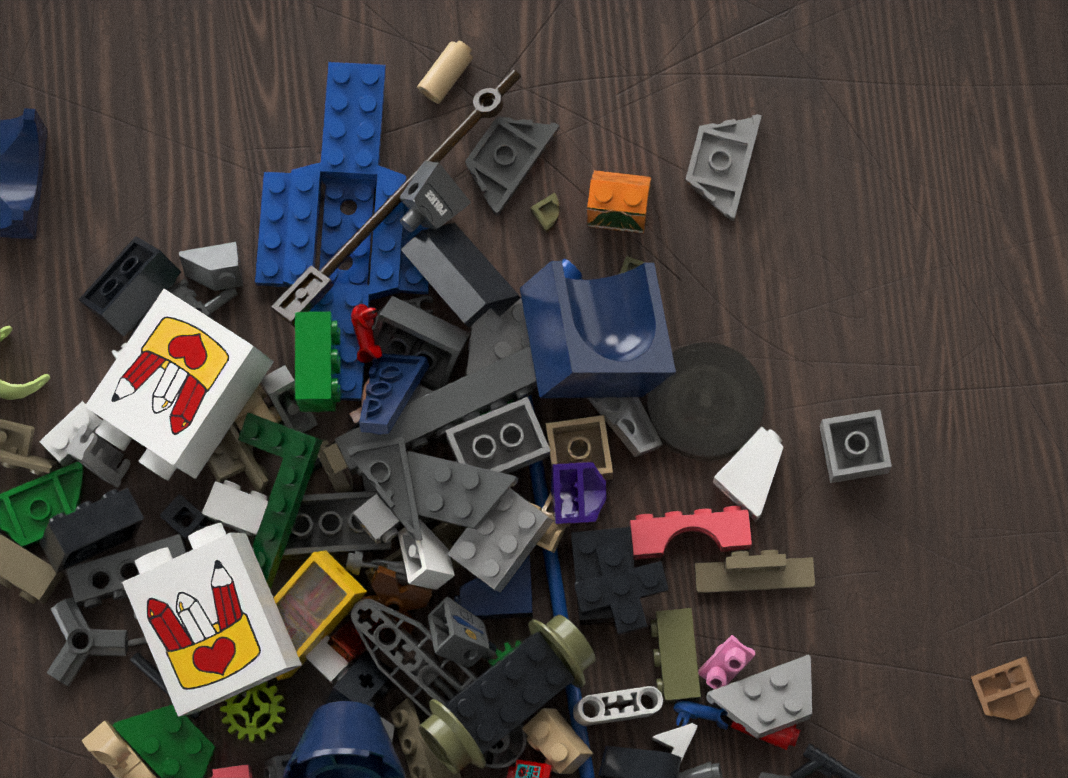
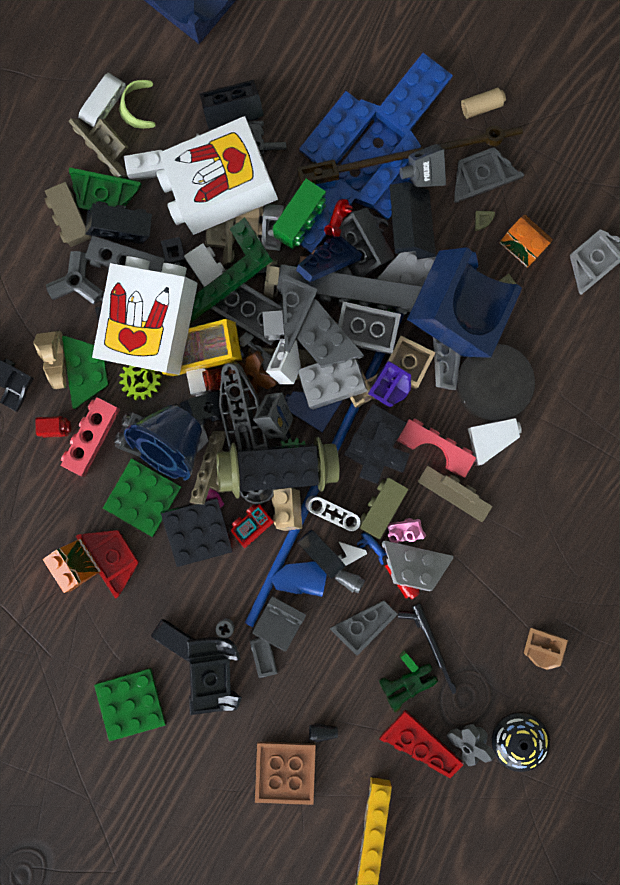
camera: 30 degrees right, 10 degrees up
(98, 456) = (150, 185): light grey hinge -> none
(213, 266) = (283, 124): dark grey slope -> none
(855, 446) = (558, 463): light grey brick -> none

